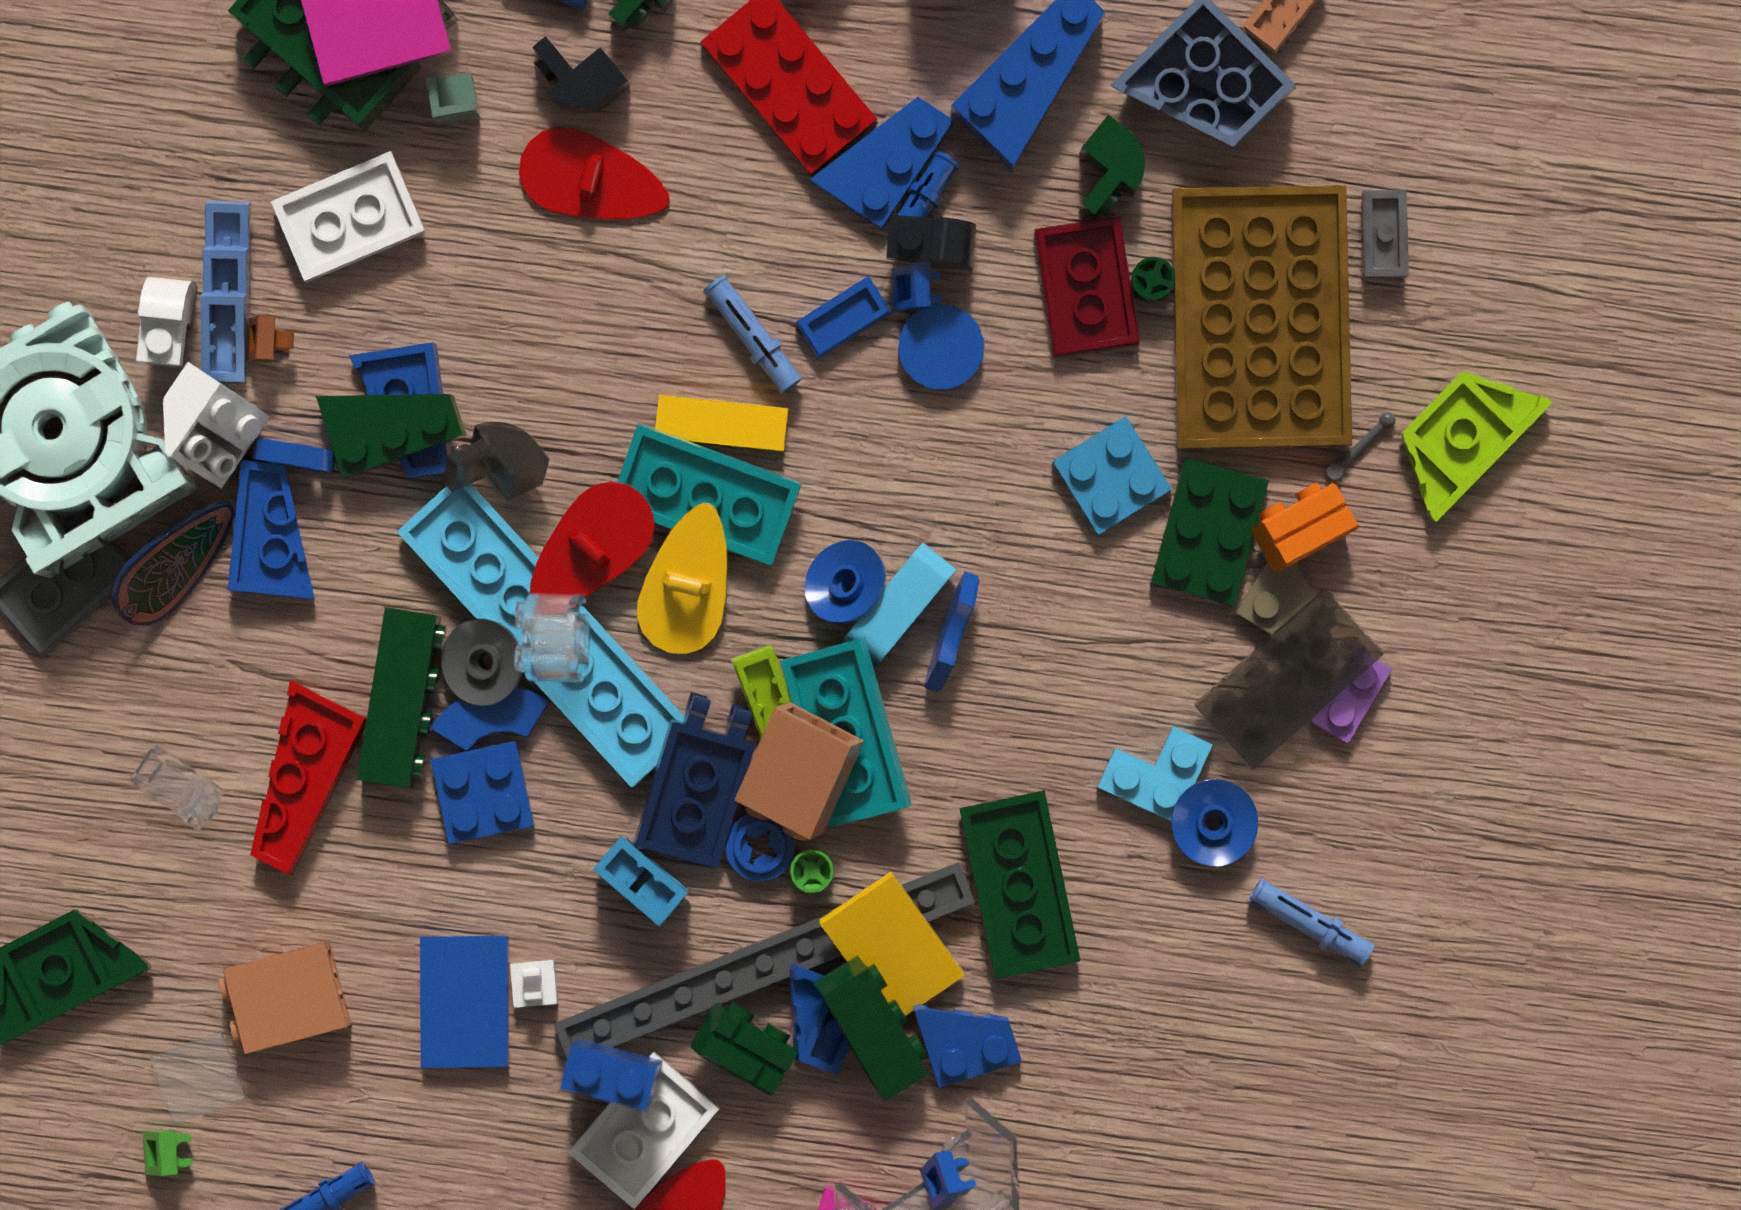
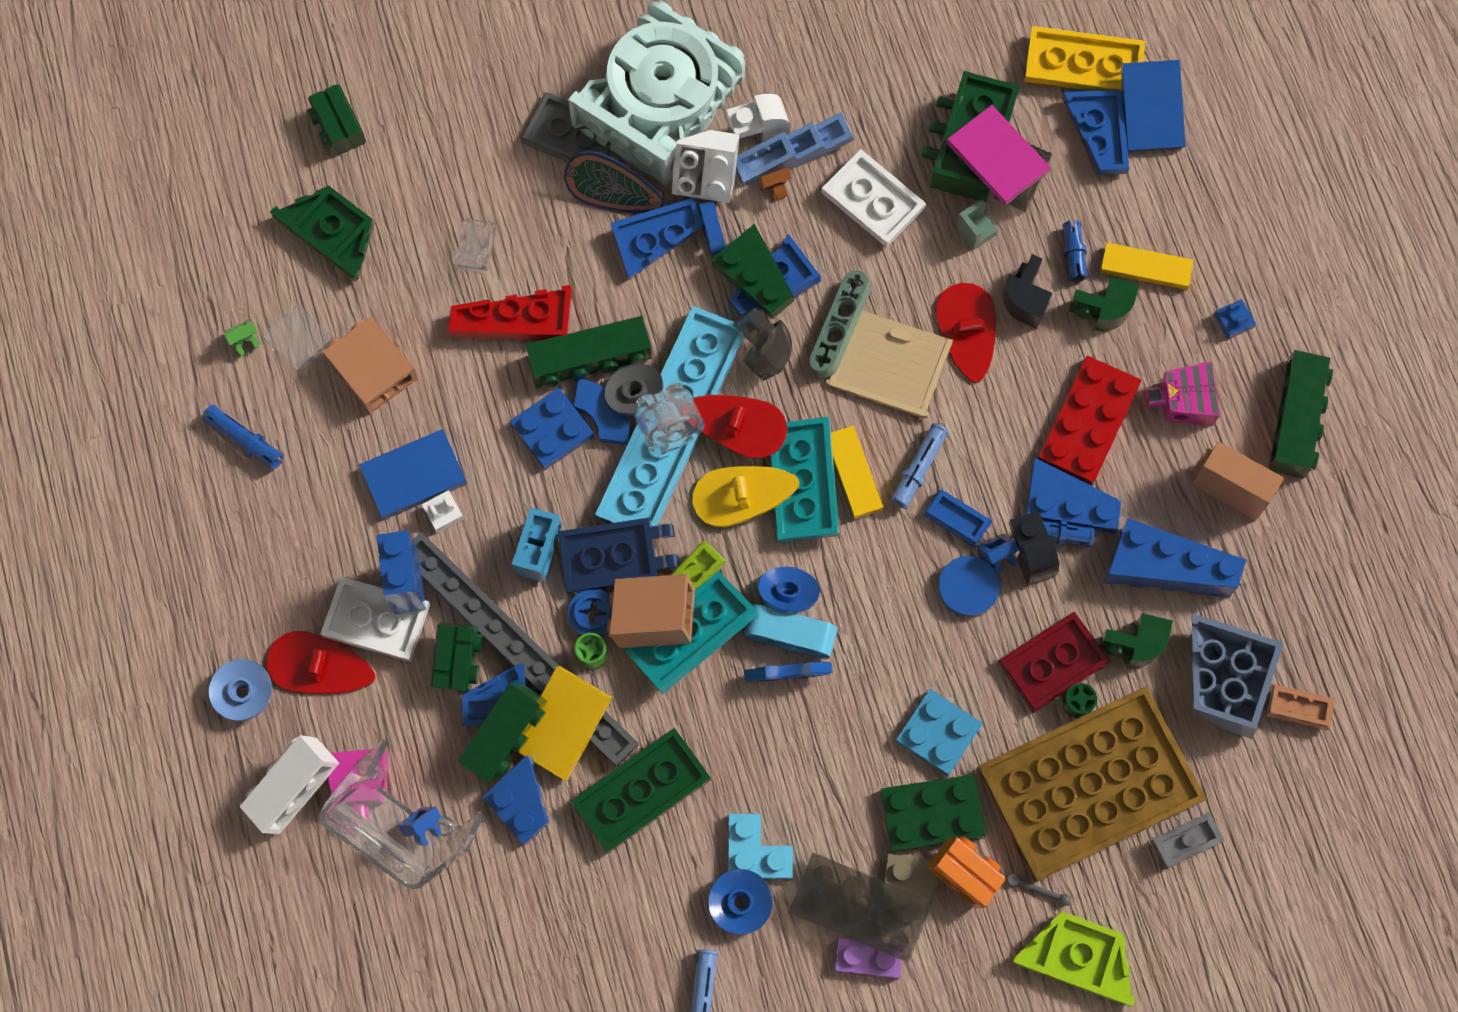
camera: 65 degrees right, 15 degrees down
(514, 339) = (837, 323): none -> sand green beam
(592, 304) = (892, 364): none -> tan piece

